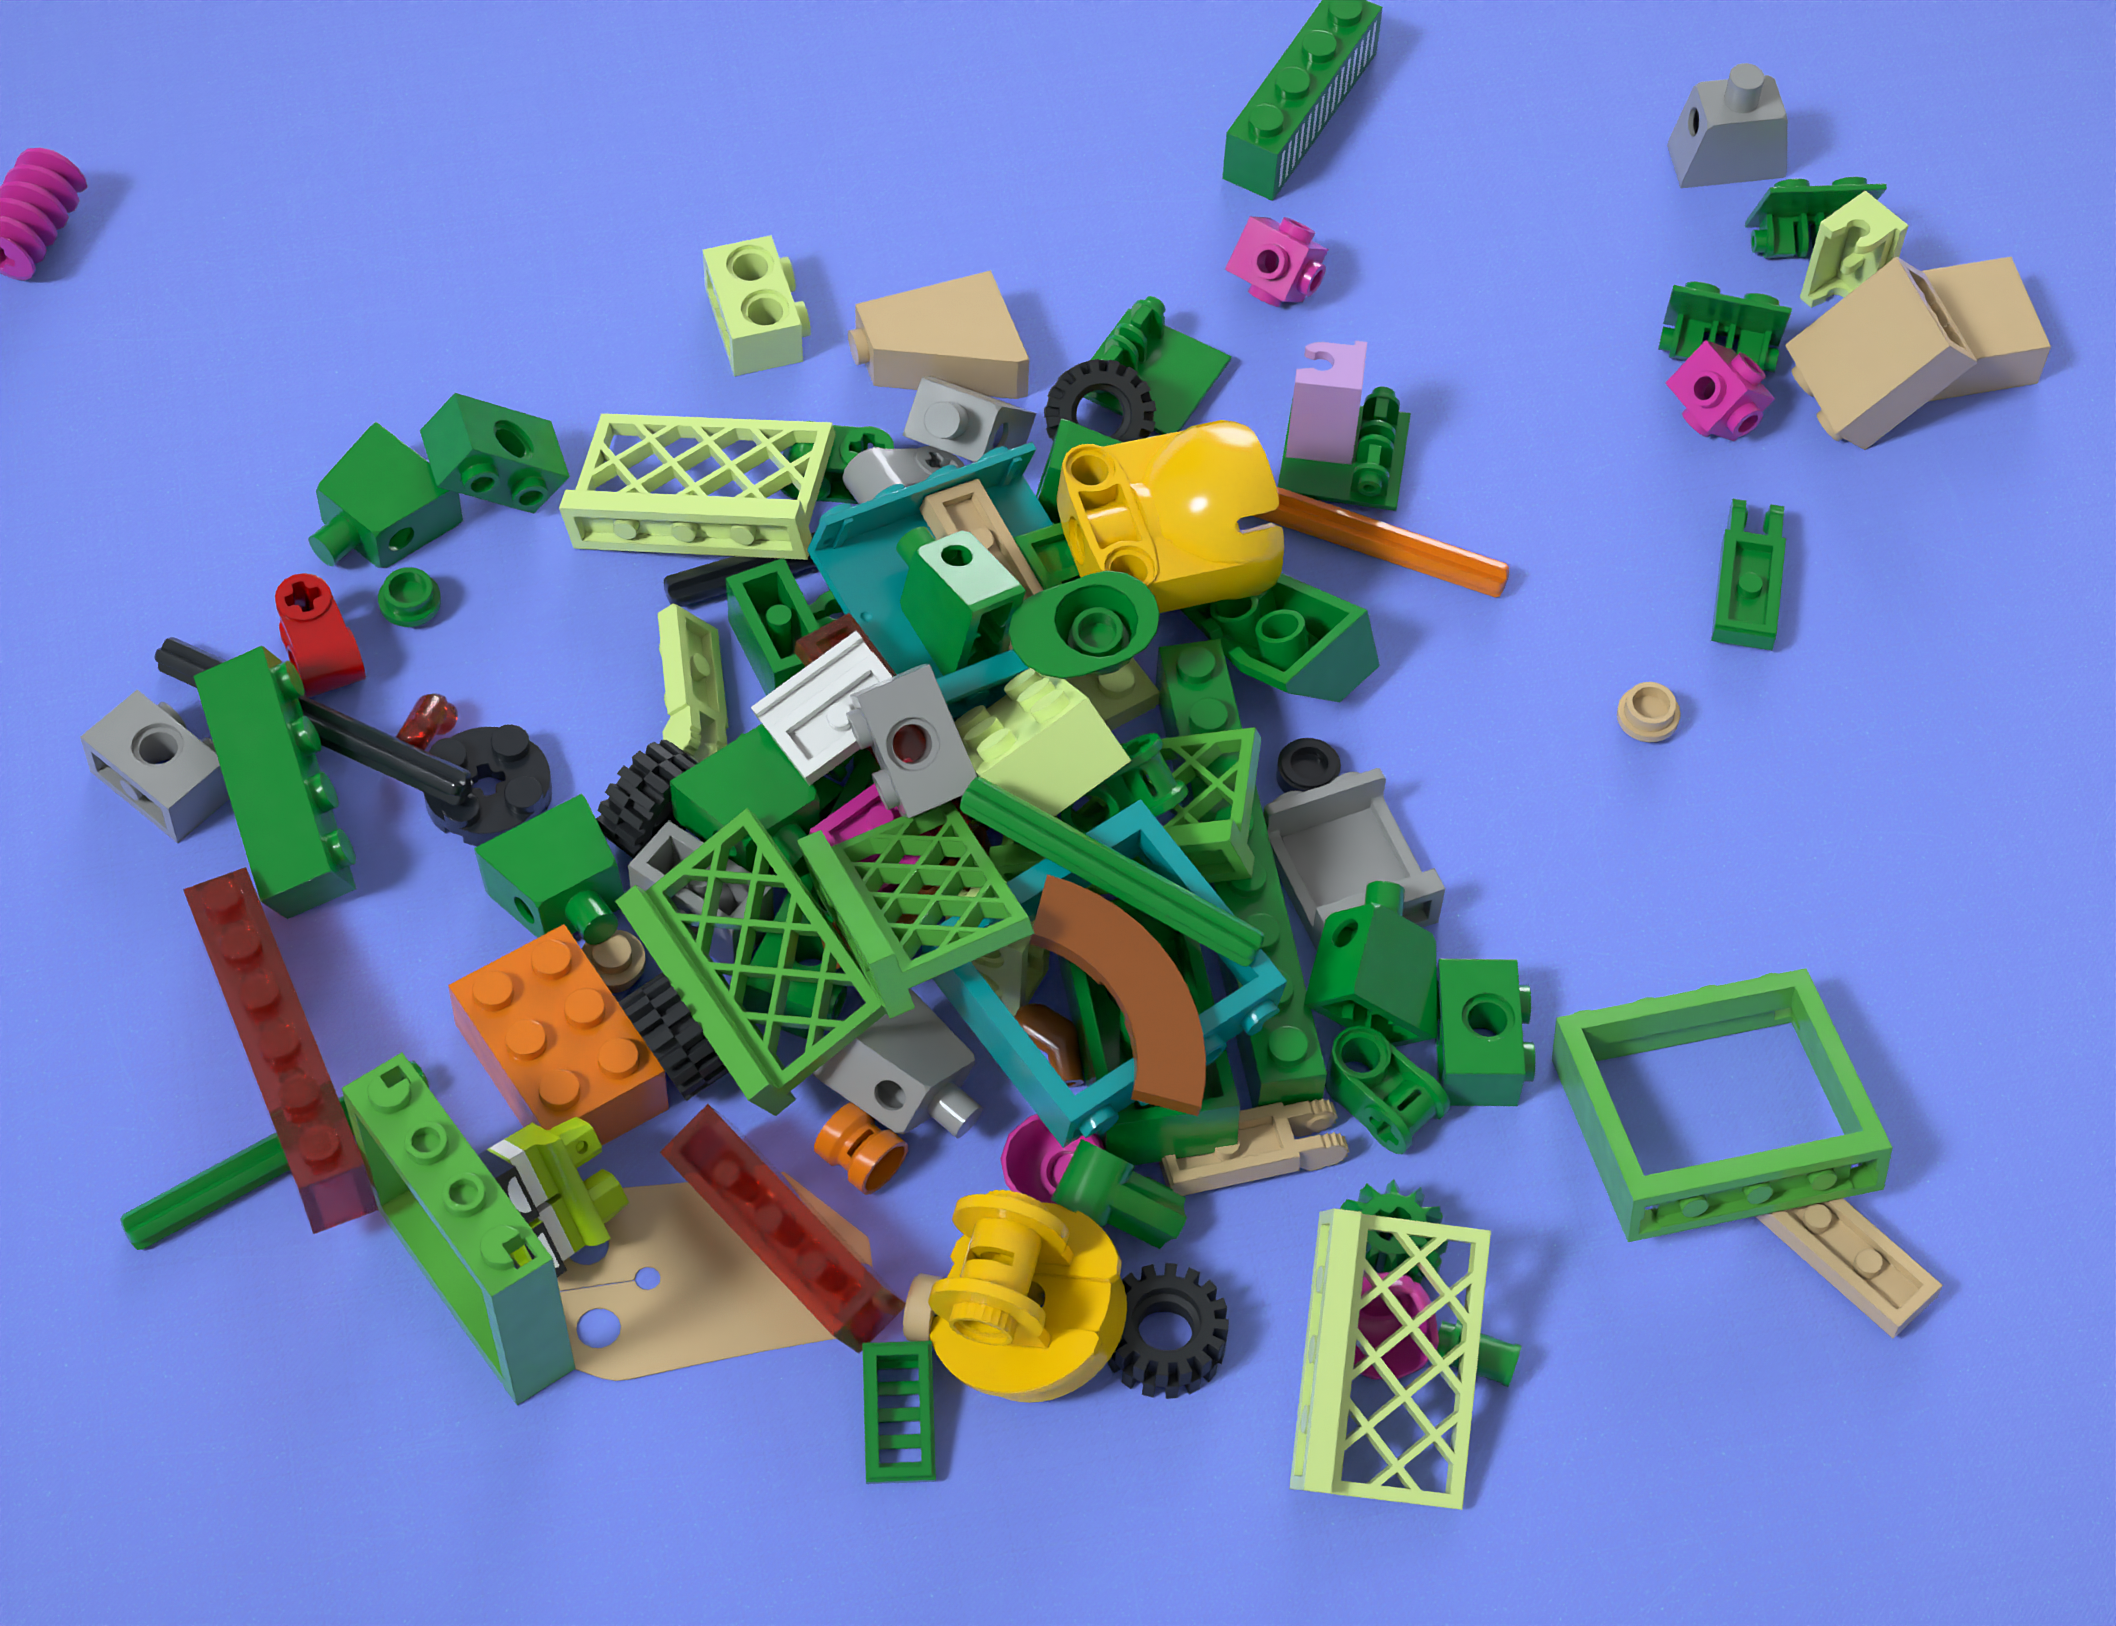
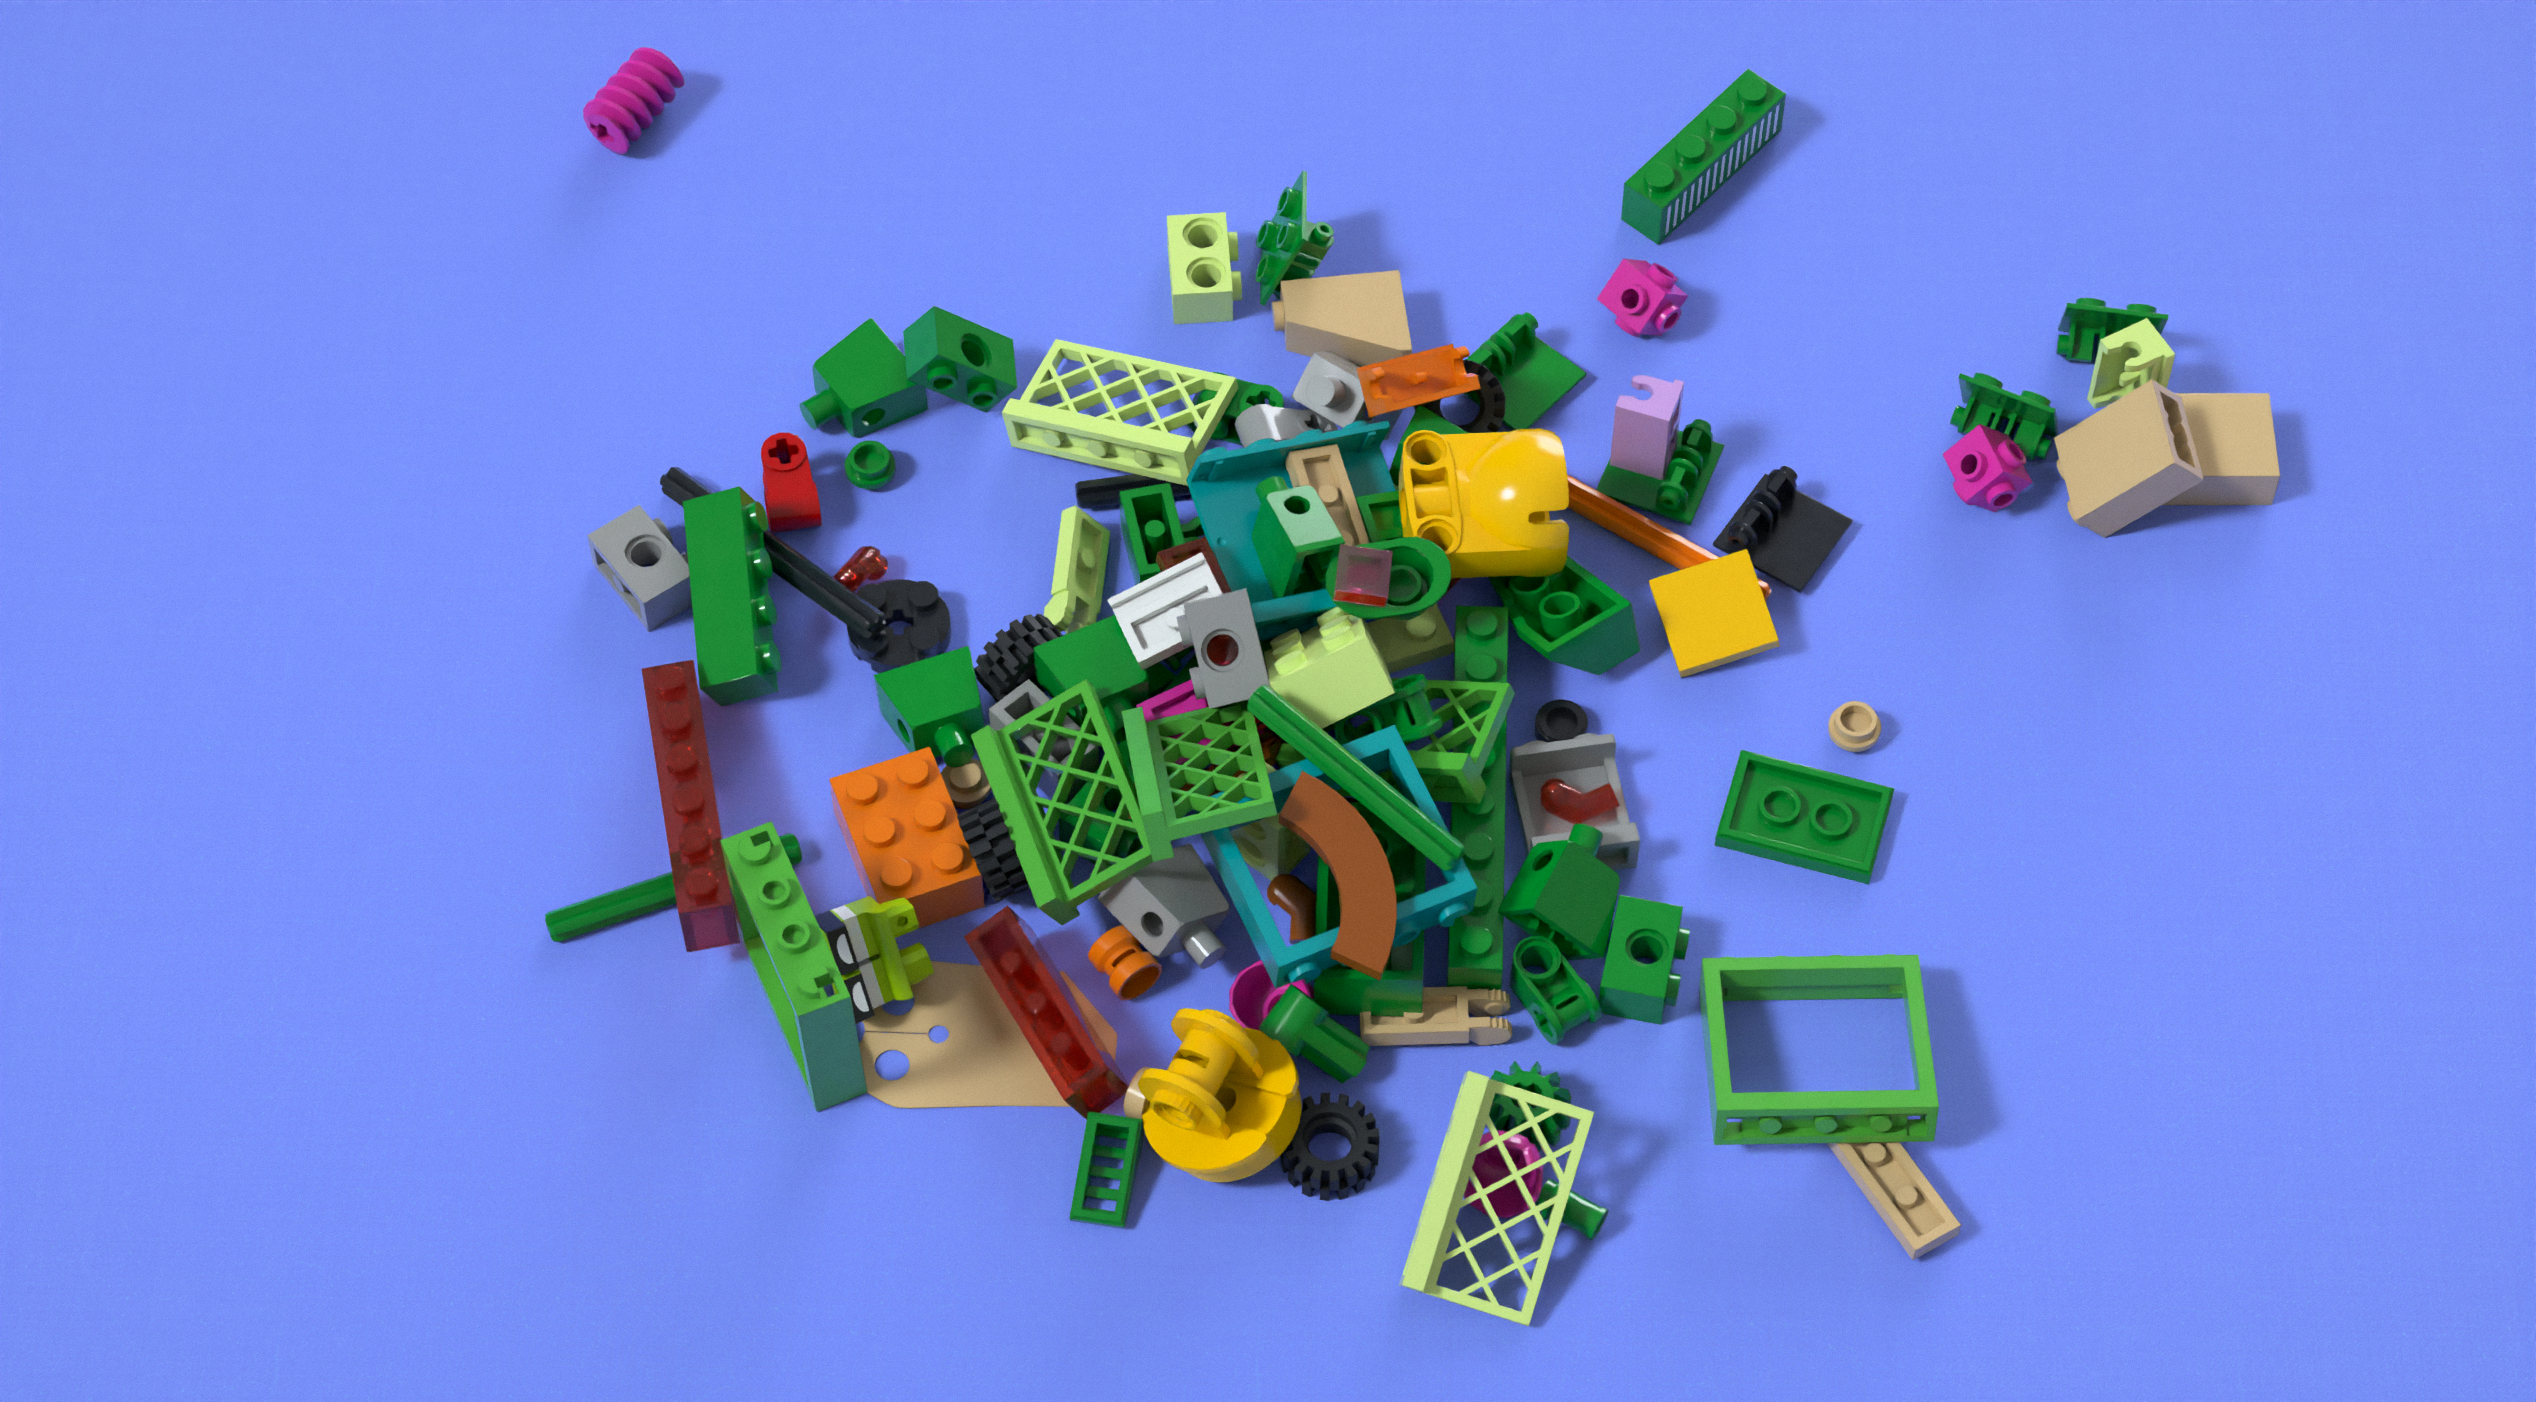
camera: 15 degrees right, 0 degrees up
(856, 257) = (1290, 243): none -> green hinge
(1051, 389) = (1416, 379): none -> orange hinge
(1057, 626) = (1362, 575): none -> clear pink plate
(1351, 860) = (1575, 805): none -> clear red arm
(1454, 607) = (1714, 613): none -> yellow tile
(1503, 499) = (1783, 530): none -> black hinge
(1619, 828) = (1804, 817): none -> green tile
(1731, 131) = (2060, 247): light grey torso -> none
(1749, 580) = (1970, 631): green hinge -> none

